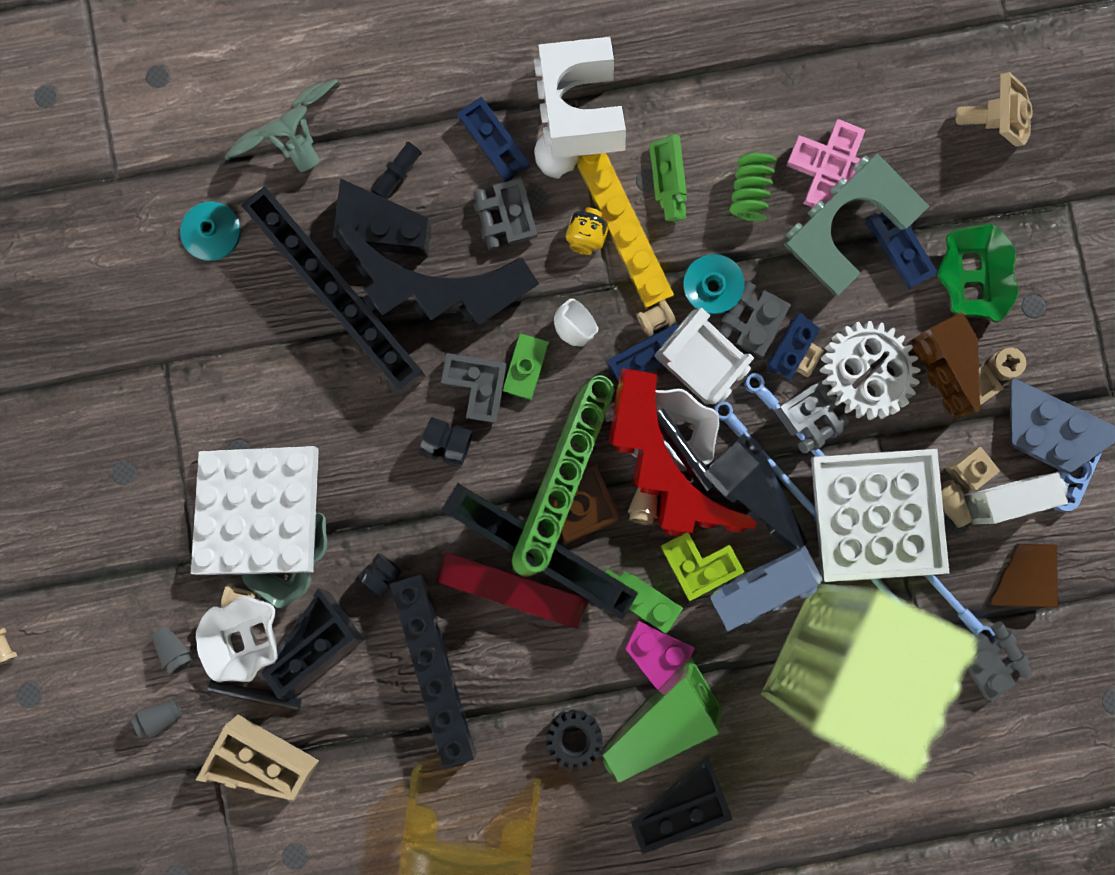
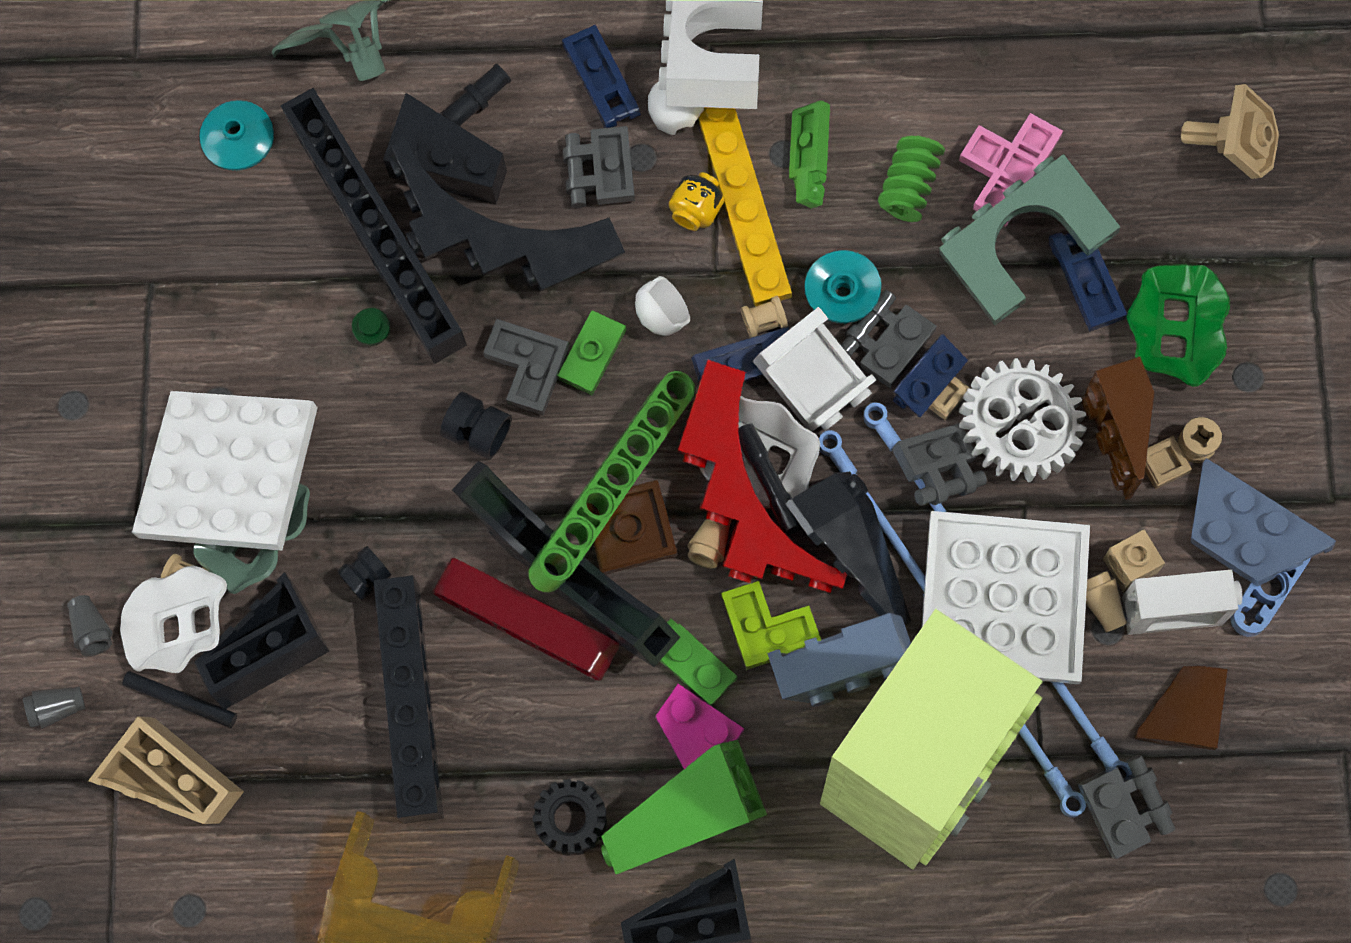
camera: 15 degrees right, 10 degrees down
(347, 373) = (371, 326): none -> dark green plate

